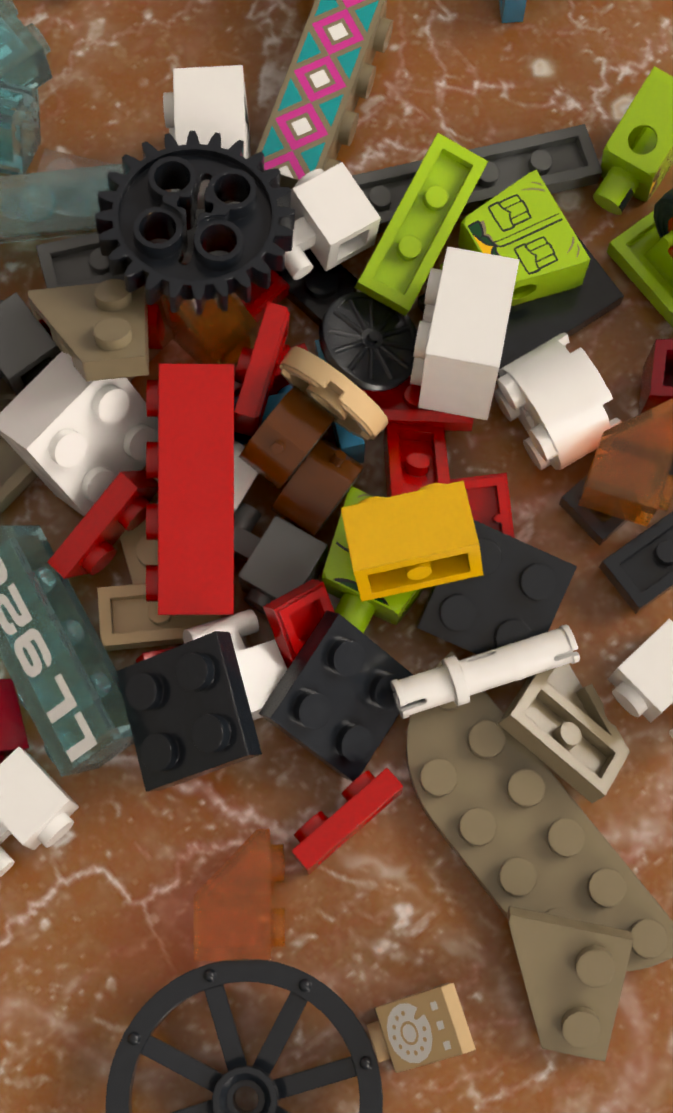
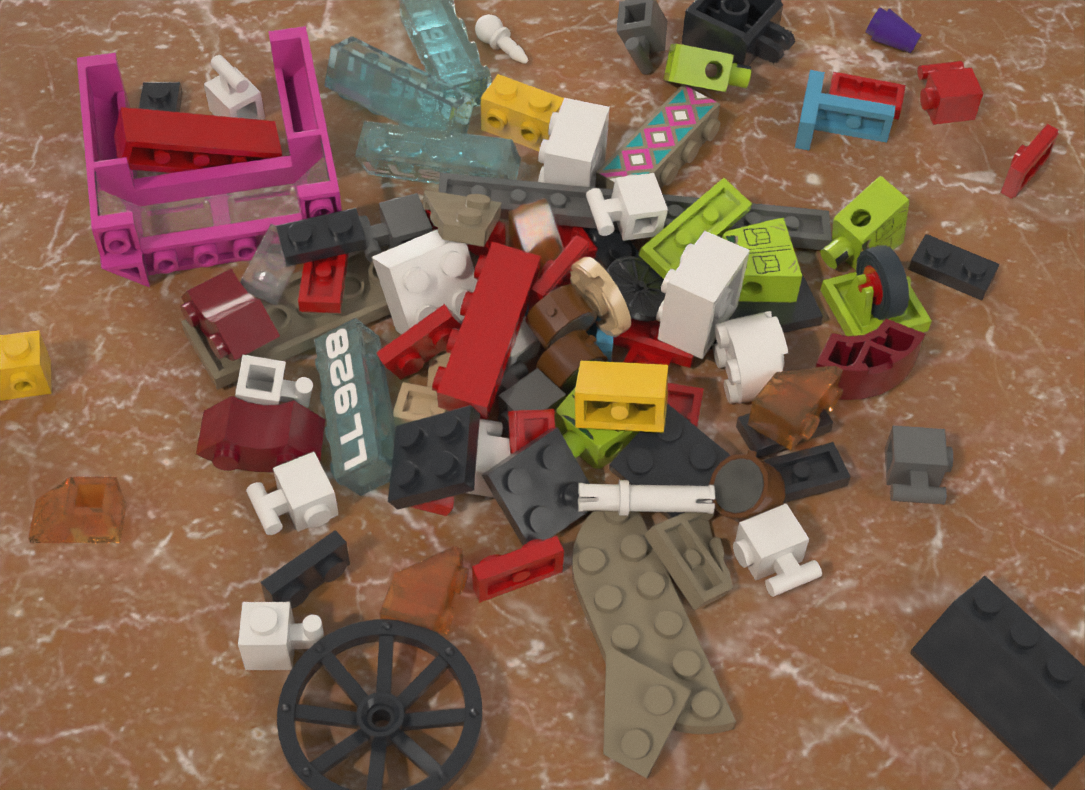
camera: 15 degrees right, 20 degrees down
(59, 945) = (306, 572): none -> black plate
(64, 1031) = (271, 635): none -> white brick
(109, 90) = (518, 111): none -> yellow brick
(142, 210) = (565, 191): black gear -> none
(421, 1029) = (521, 705): tan slope -> none
(610, 609) = (746, 487): none -> piece

